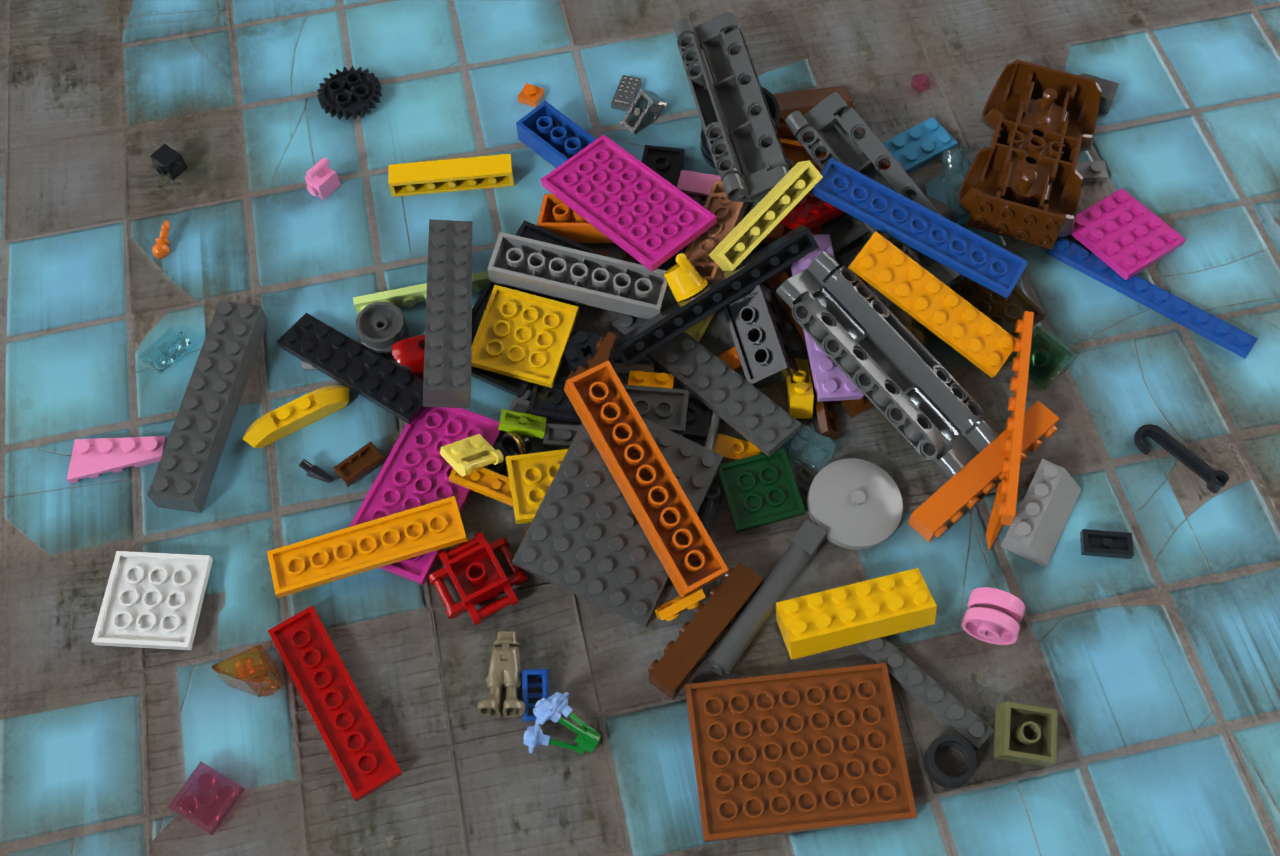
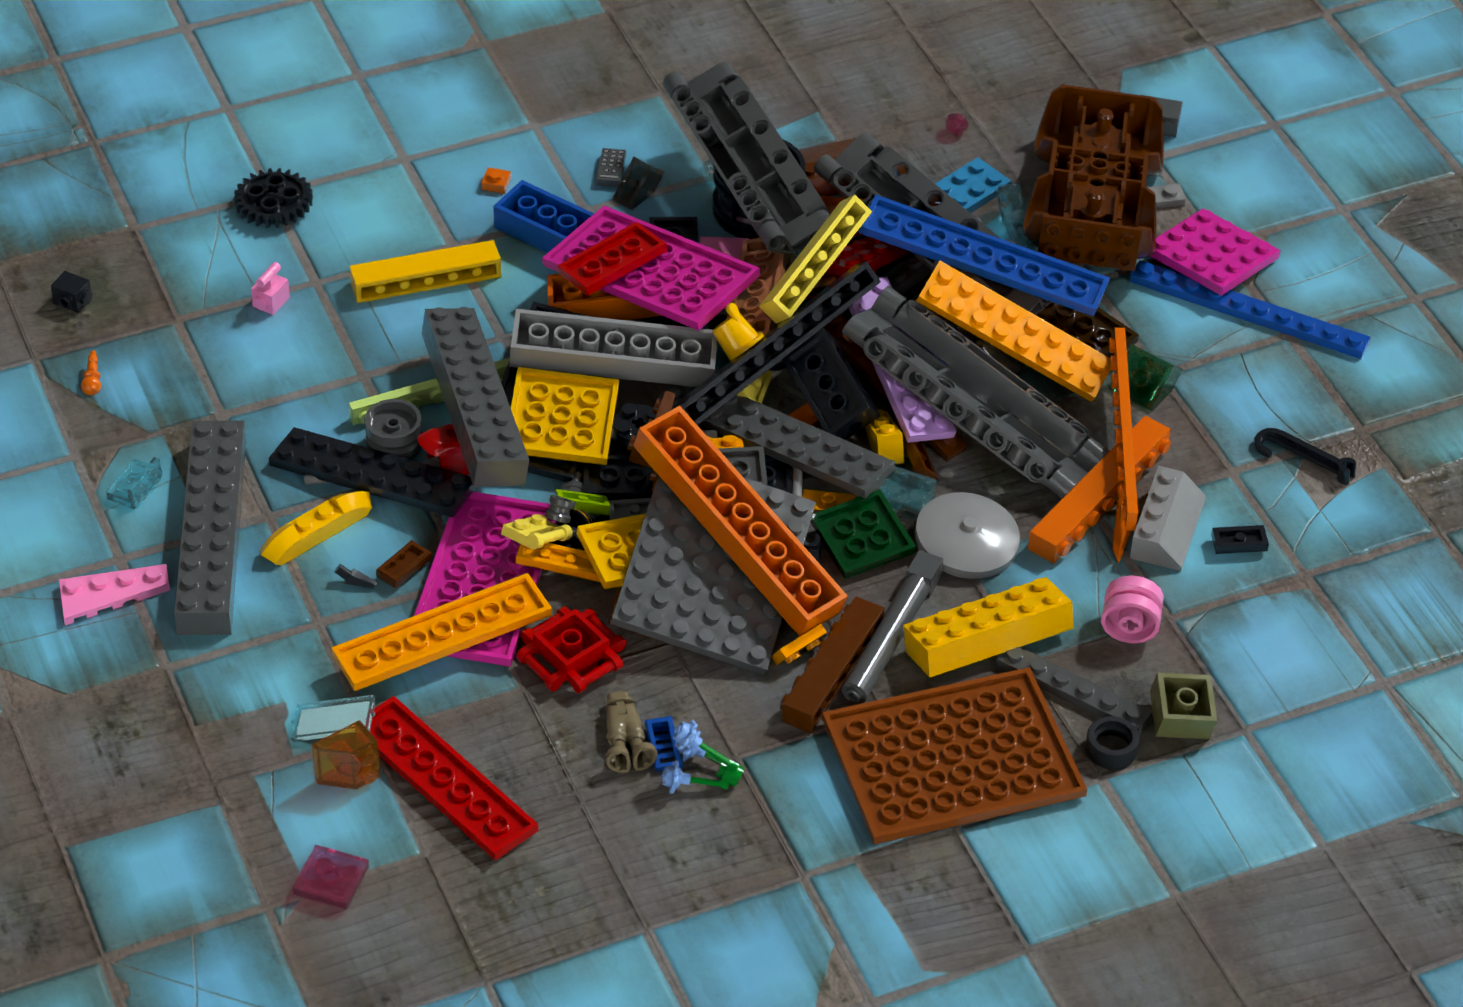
camera: 15 degrees left, 15 degrees down
(153, 600) = (208, 715): white plate -> none
(255, 621) = (327, 717): none -> clear light blue piece
(497, 433) = (559, 509): none -> dark grey wheel
(594, 190) = (612, 258): none -> red plate

